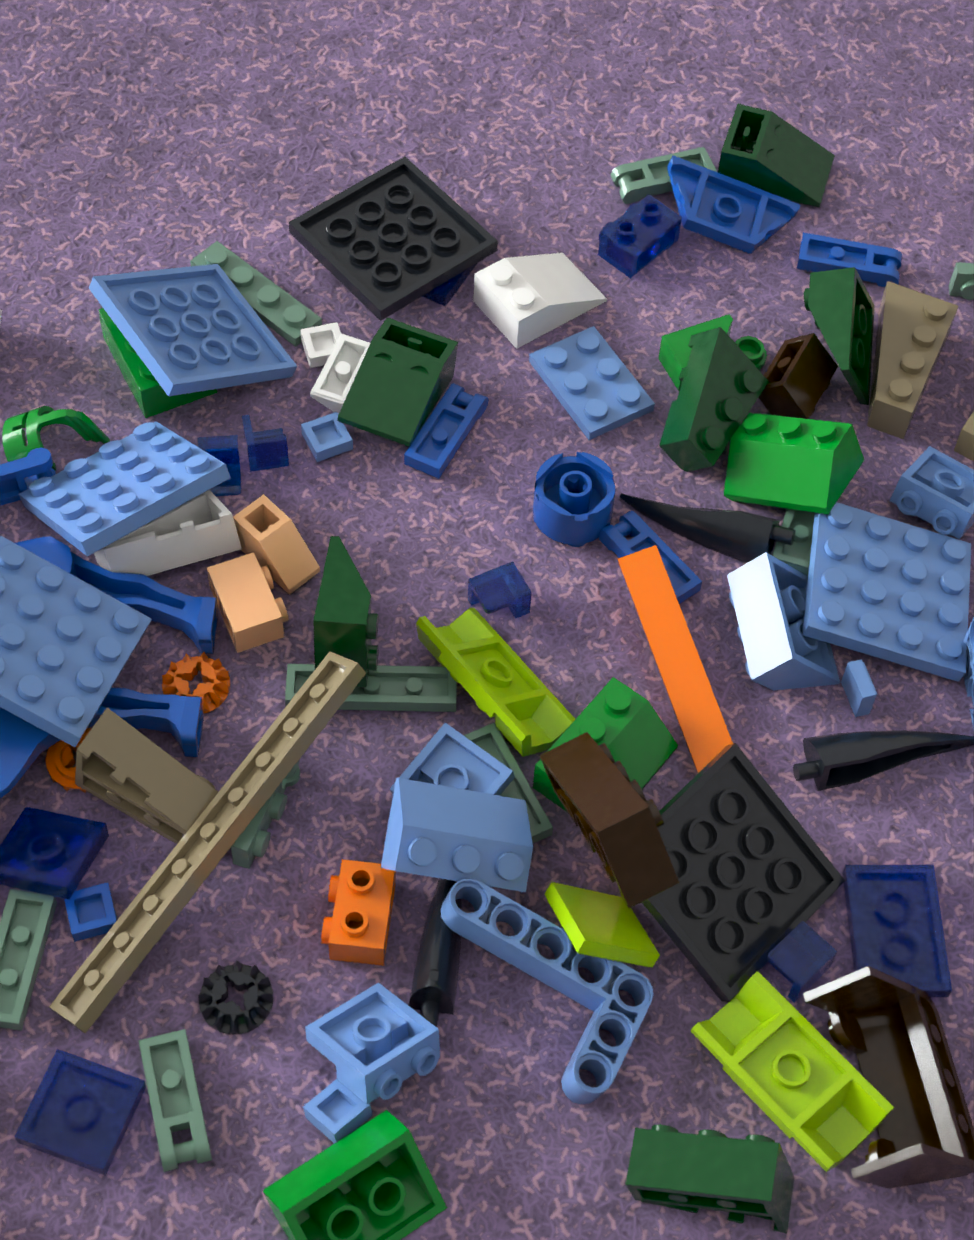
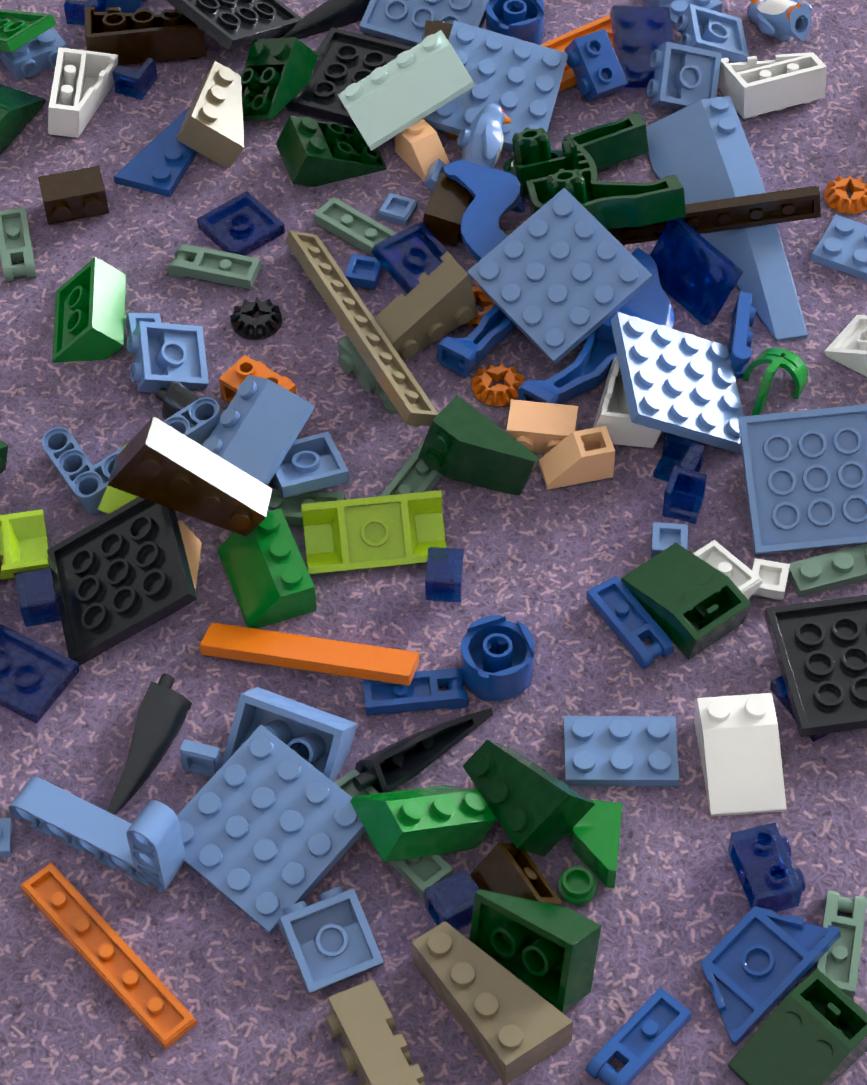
camera: 125 degrees right, 5 degrees down
(842, 409) = (452, 900): none -> clear blue panel

